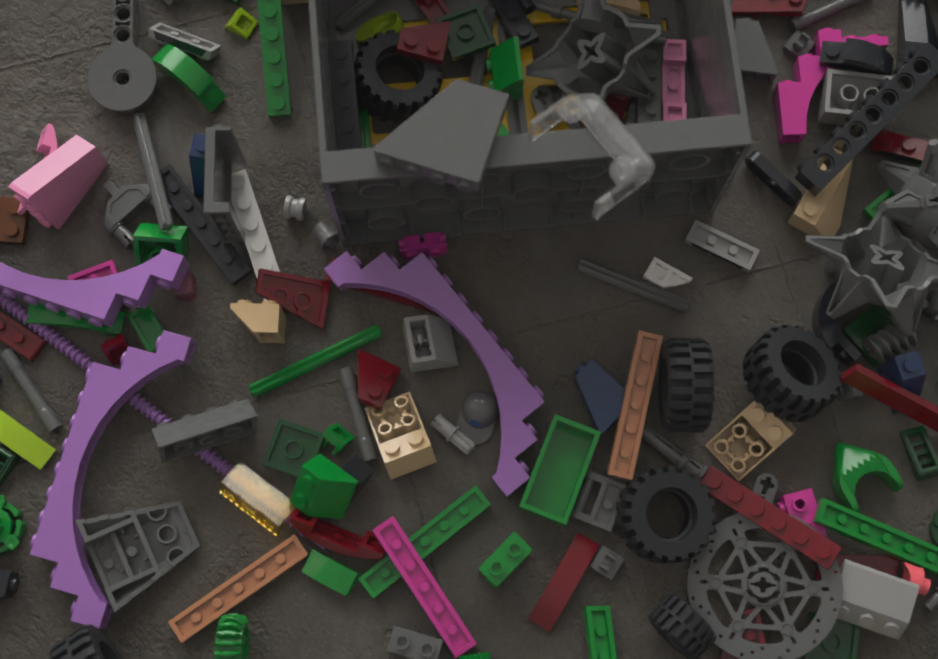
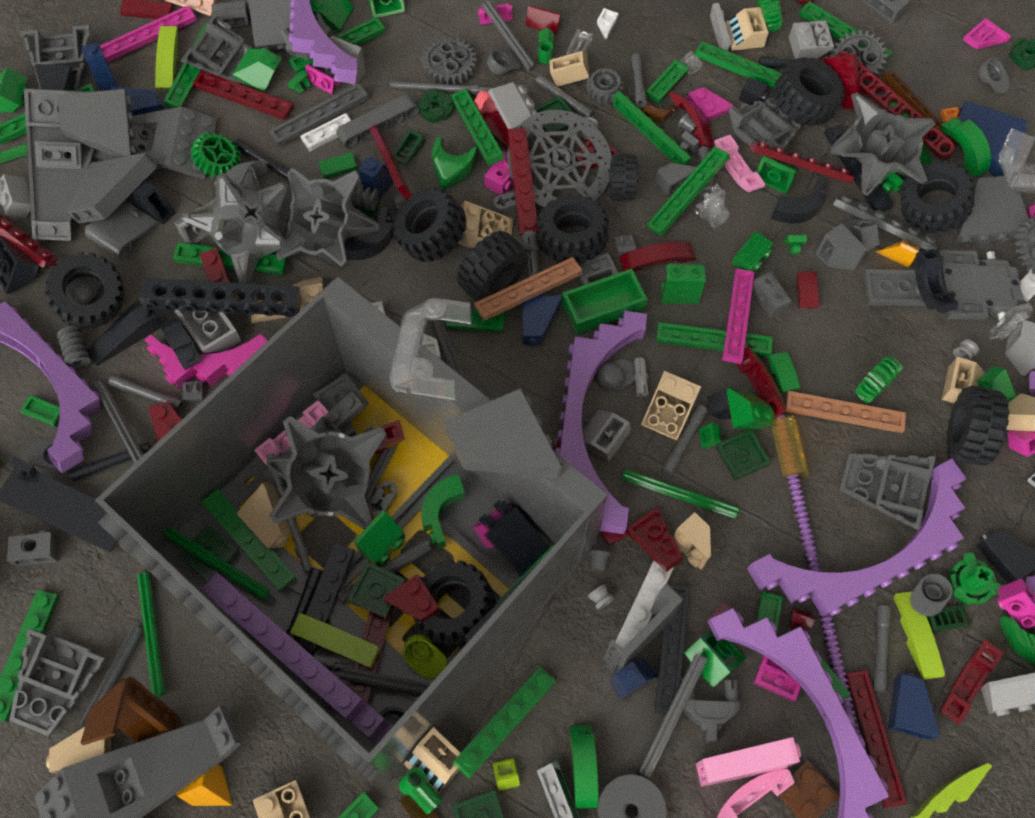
camera: 135 degrees left, 10 degrees down
(21, 473) = (931, 595): none -> dark grey cap
(205, 430) = (790, 506): dark grey slope -> none
(375, 379) = (656, 446): dark red wing -> none
(666, 325) = (493, 324): none -> green plate

